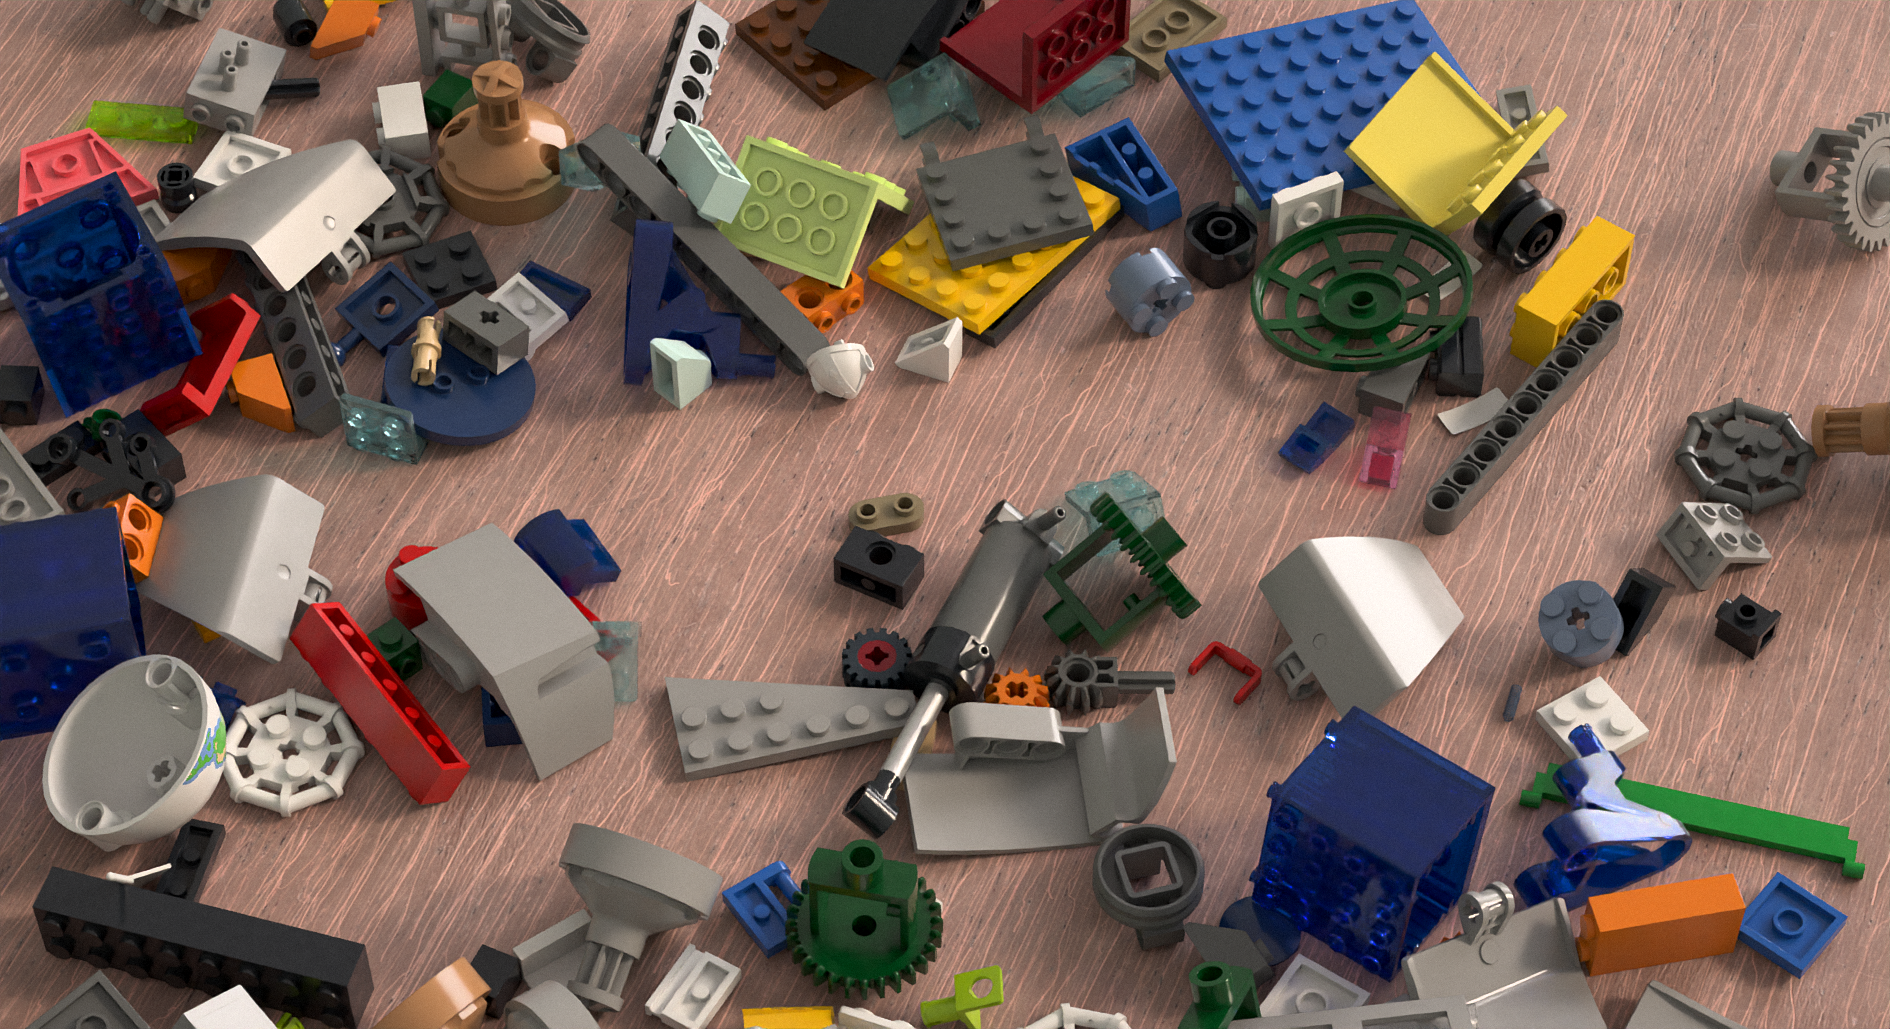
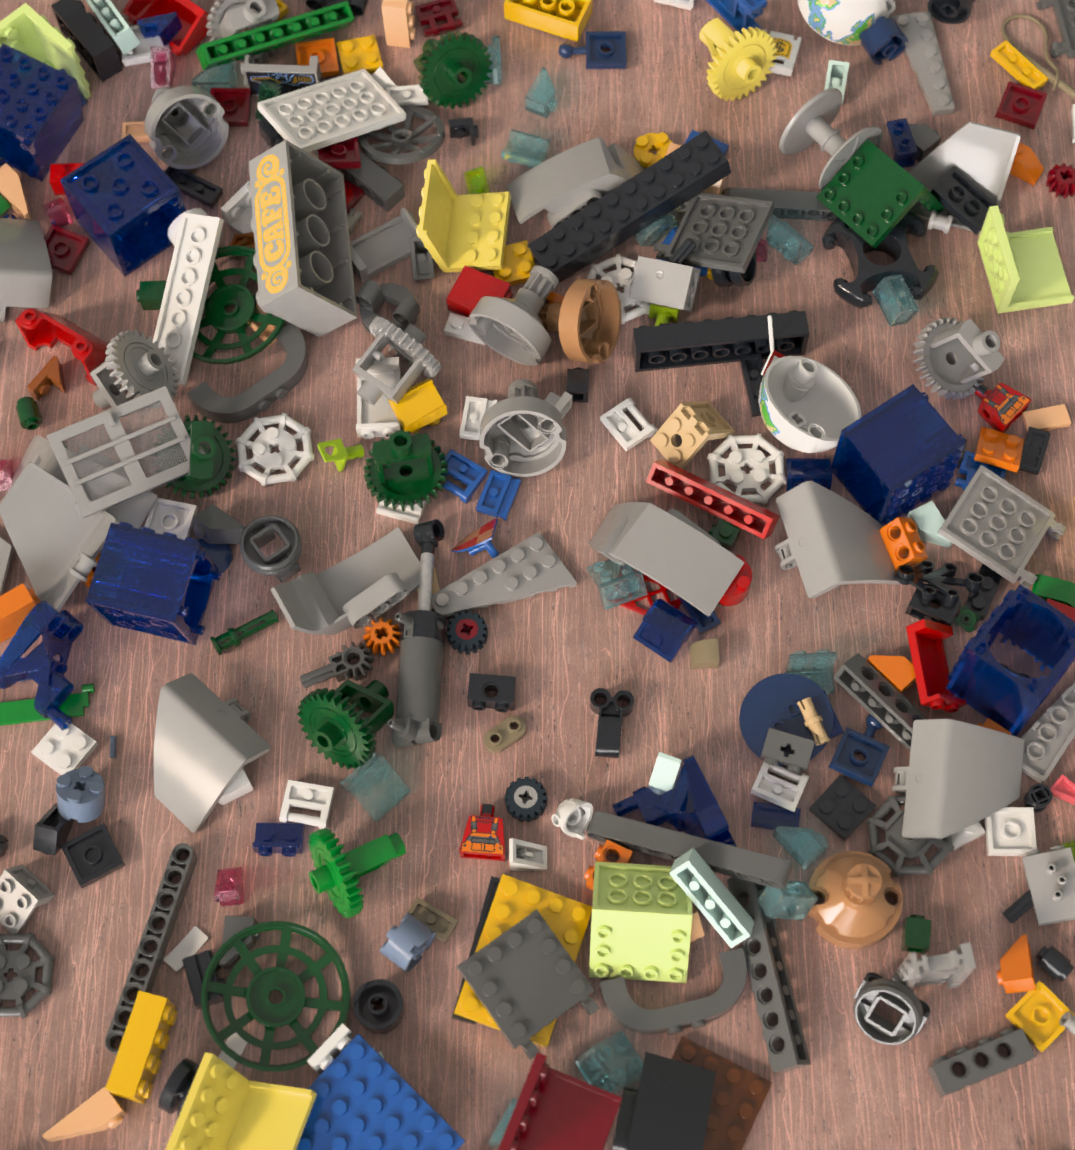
camera: 160 degrees right, 15 degrees up
(340, 811) = (696, 425): none -> tan bracket
(403, 120) = (936, 905): white brick -> none
(453, 887) = (623, 428): none -> white plate
(520, 505) = (704, 654): none -> dark tan brick
(533, 237) = (802, 844): none -> clear light blue slope
(717, 473) = (610, 720): none -> black piece
(728, 847) = (498, 495): none -> blue plate
(792, 785) = (479, 540): none -> shield
(812, 120) = (675, 1017): none -> dark grey arch
(897, 419) = (523, 807): none -> black wheel
(982, 391) = (484, 836): none -> torso
(1103, 324) = (435, 919): none -> dark tan plate
(1127, 168) = (457, 1042): blue wedge -> none
(1224, 527) = (309, 797): none -> white plate
(1228, 373) = (338, 872): none -> green piece
(1232, 790) = (234, 640): none -> dark green pin
(1234, 659) = (274, 715): red piece -> none
(1290, 490) = (279, 838): none -> clear blue bracket
(1318, 439) = (275, 886): clear blue slope -> none
(1583, 553) = (92, 855): none -> black plate
(1674, 257) = (92, 1116): none -> light nougat slope

